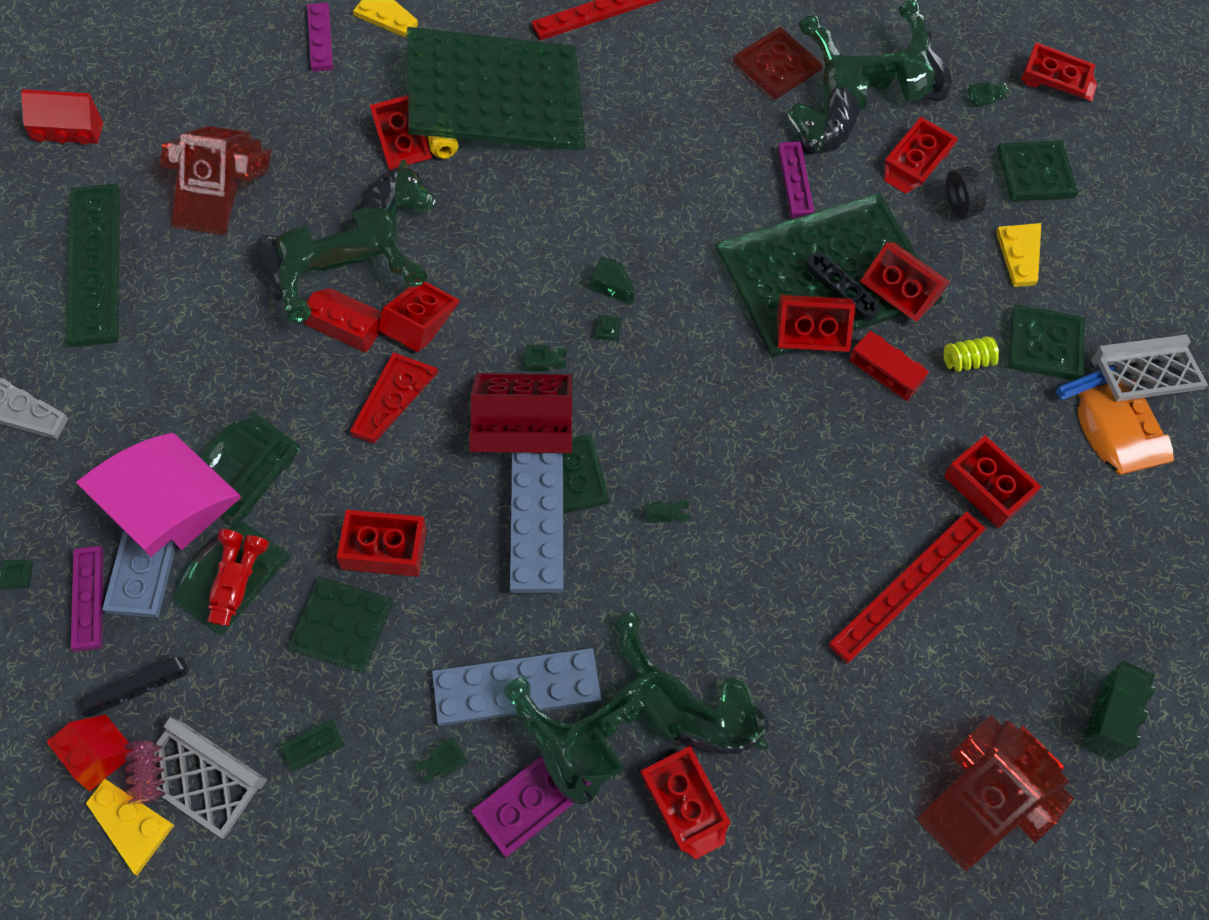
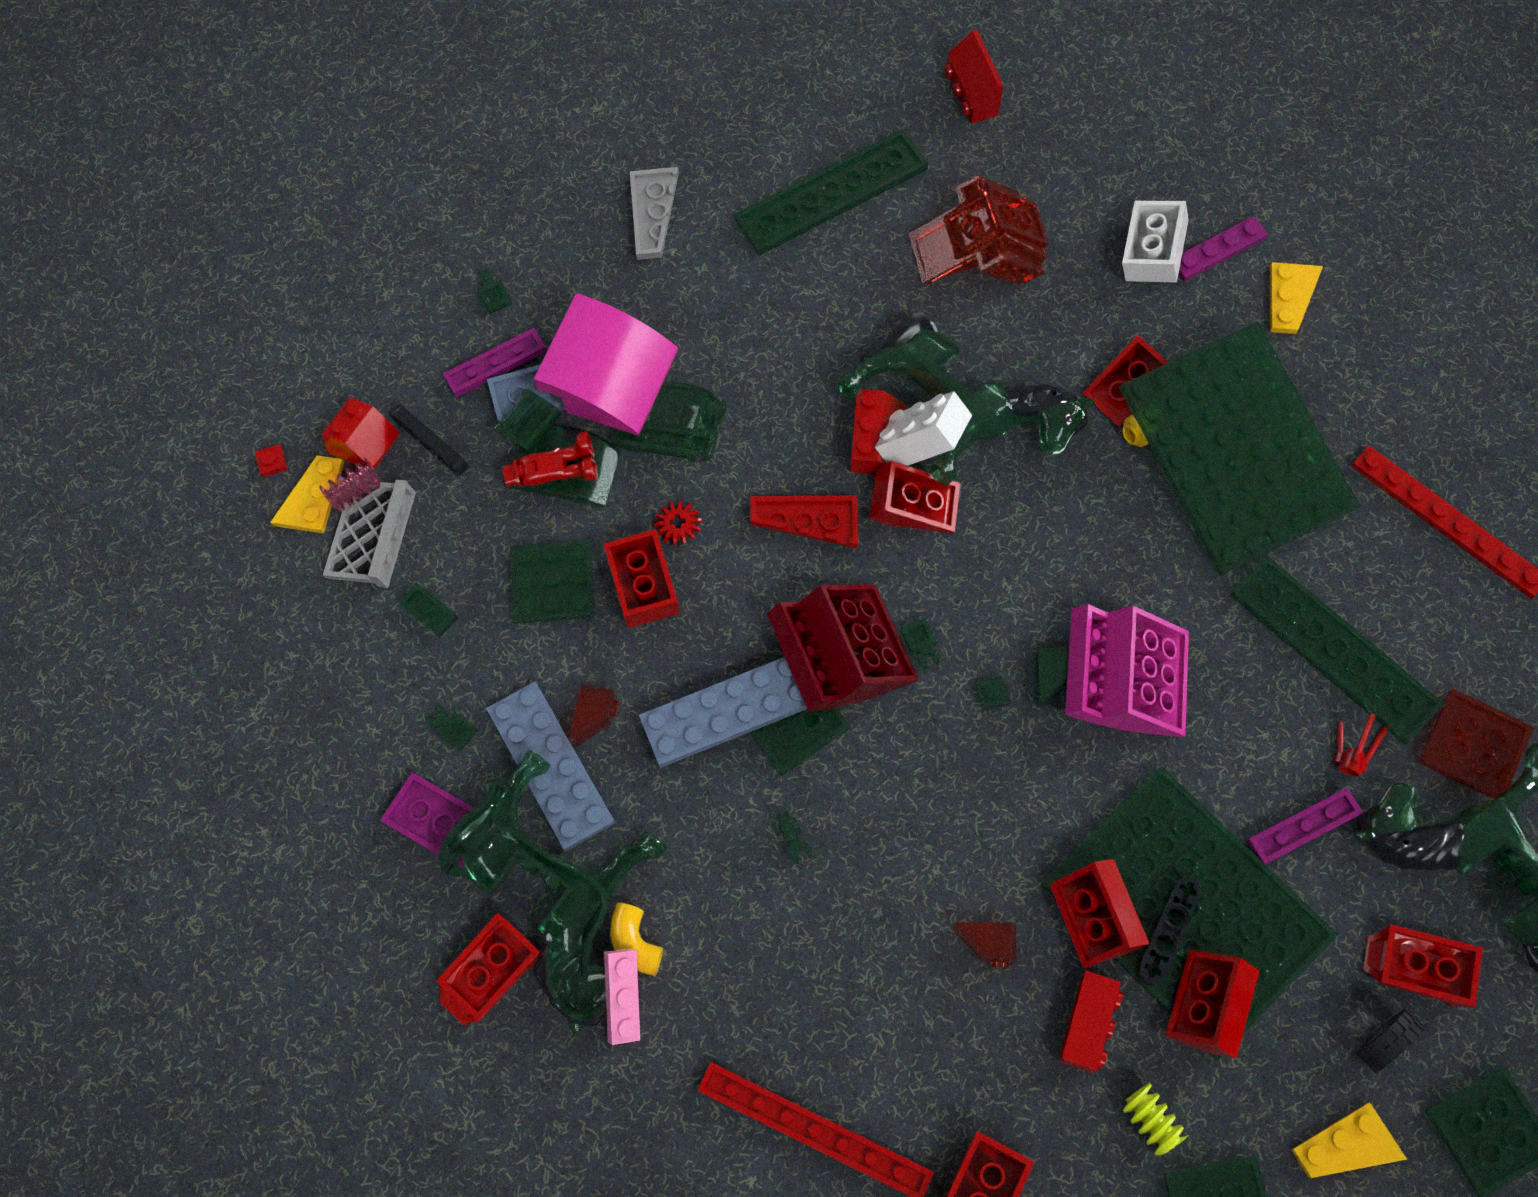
camera: 75 degrees right, 5 degrees up
(63, 854) = (271, 460): none -> red plate
(178, 580) = (532, 424): none -> clear green plate
(293, 65) = (1155, 241): none -> white brick
(330, 503) = (686, 528): none -> red gear
(370, 273) = (924, 430): none -> white brick
(485, 629) = (592, 713): none -> clear red slope
(633, 231) = (1127, 671): none -> dark pink slope
(673, 106) = (1337, 650): none -> clear green plate
(706, 672) = (626, 935): none -> yellow cylinder
(753, 690) = (622, 996): none -> bright pink plate
(759, 131) = (1353, 760): none -> red plant
(806, 406) = (989, 942): none -> clear red slope

